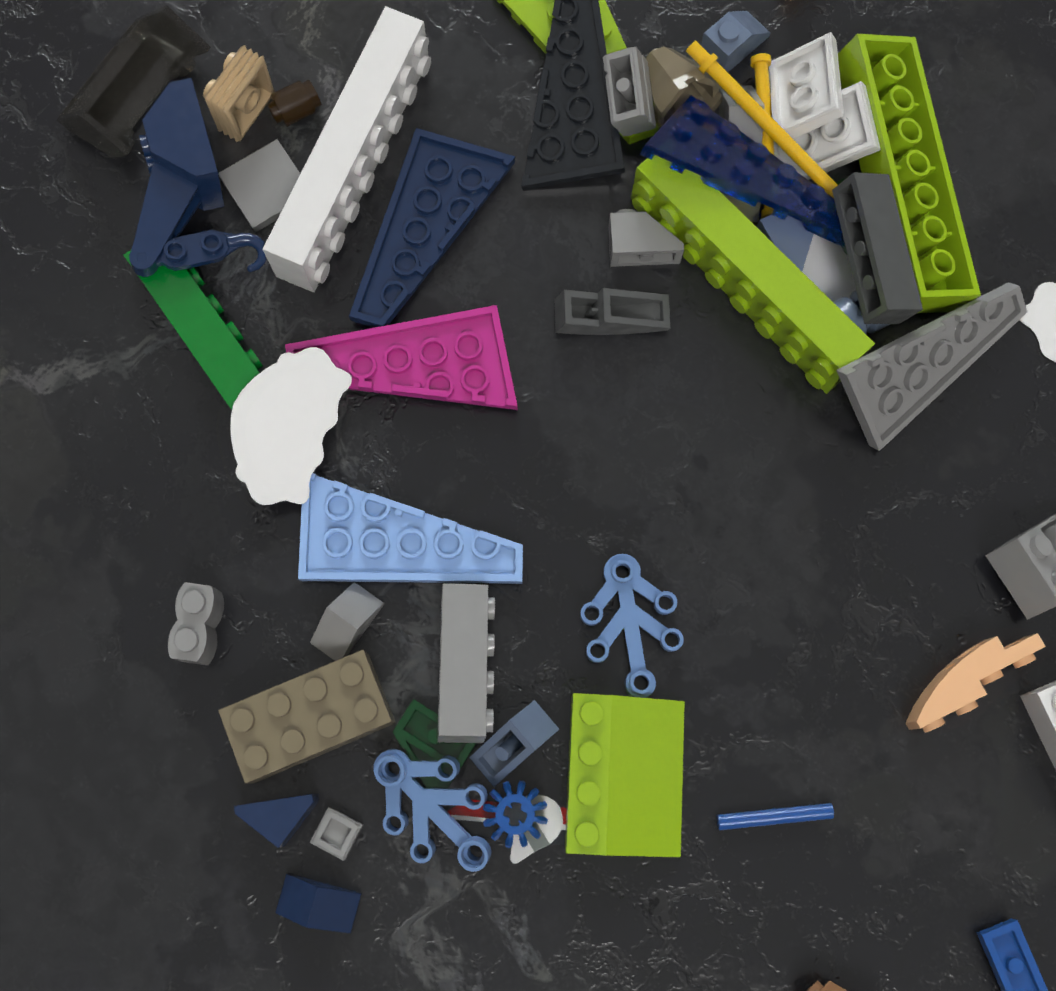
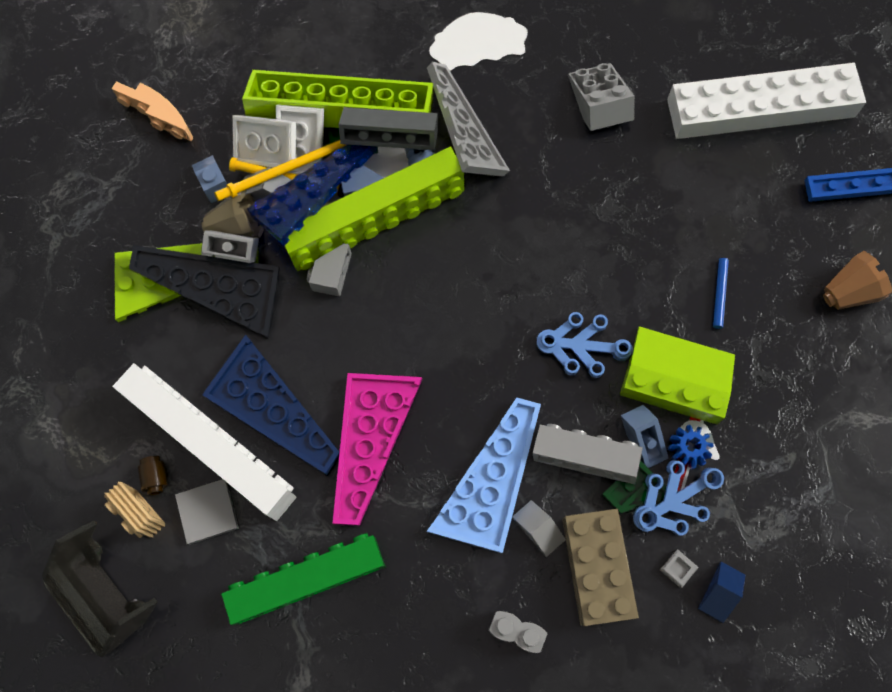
camera: 70 degrees left, 5 degrees down
(179, 183) = (185, 563): dark blue slope -> none
(277, 818) = (661, 603): dark blue slope -> none
(282, 424) = (391, 536): white sticker -> none
(611, 312) = (374, 303): dark grey slope -> none
(959, 682) = (662, 166): light nougat slope -> none

